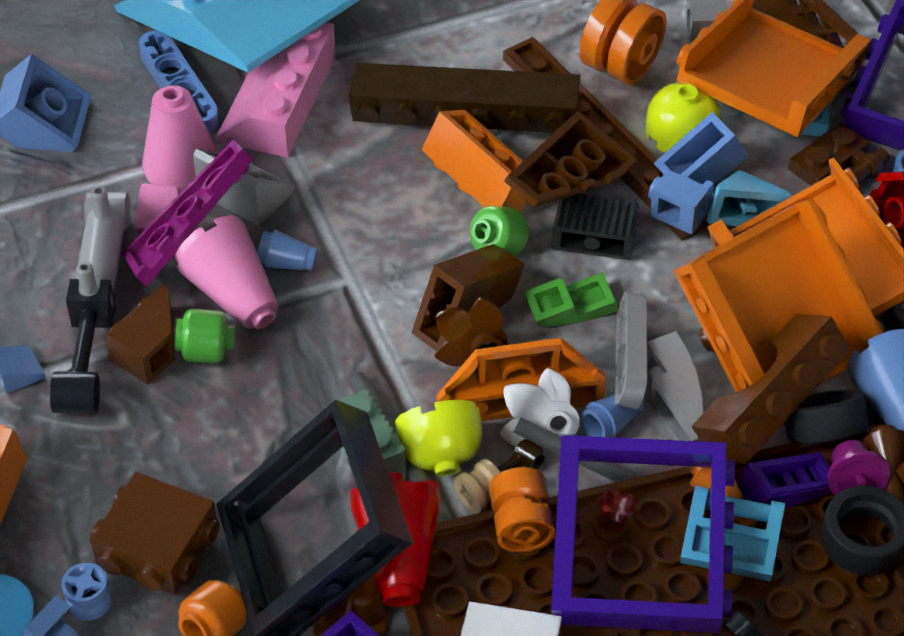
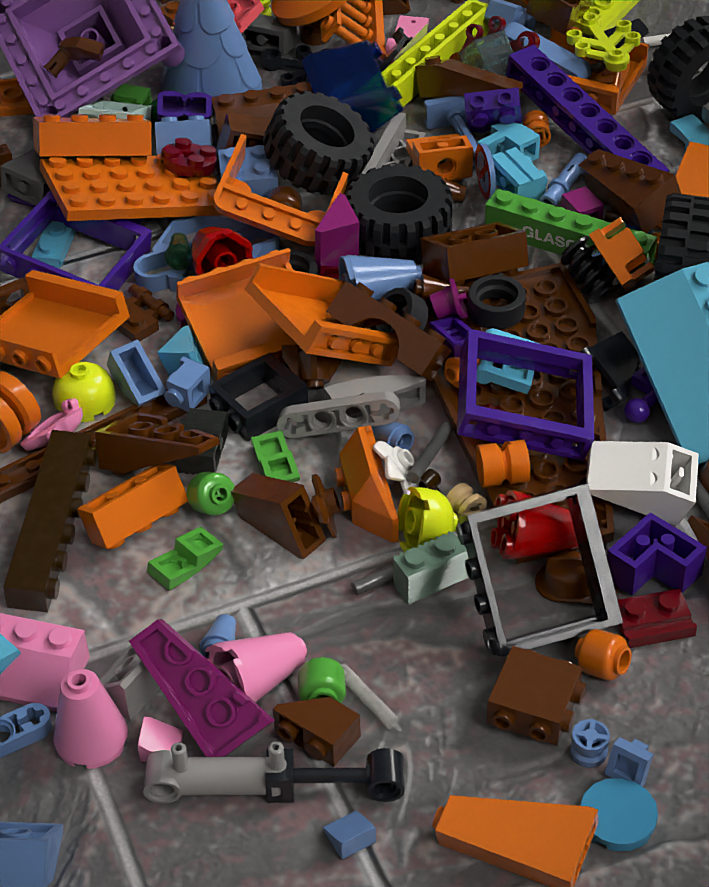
camera: 90 degrees left, 5 degrees down
(199, 382) = (368, 698): none -> white piece
(412, 223) = (187, 558): none -> bright green slope
(619, 98) = (64, 420): none -> bright pink arm
(632, 277) = (258, 420): none -> black window

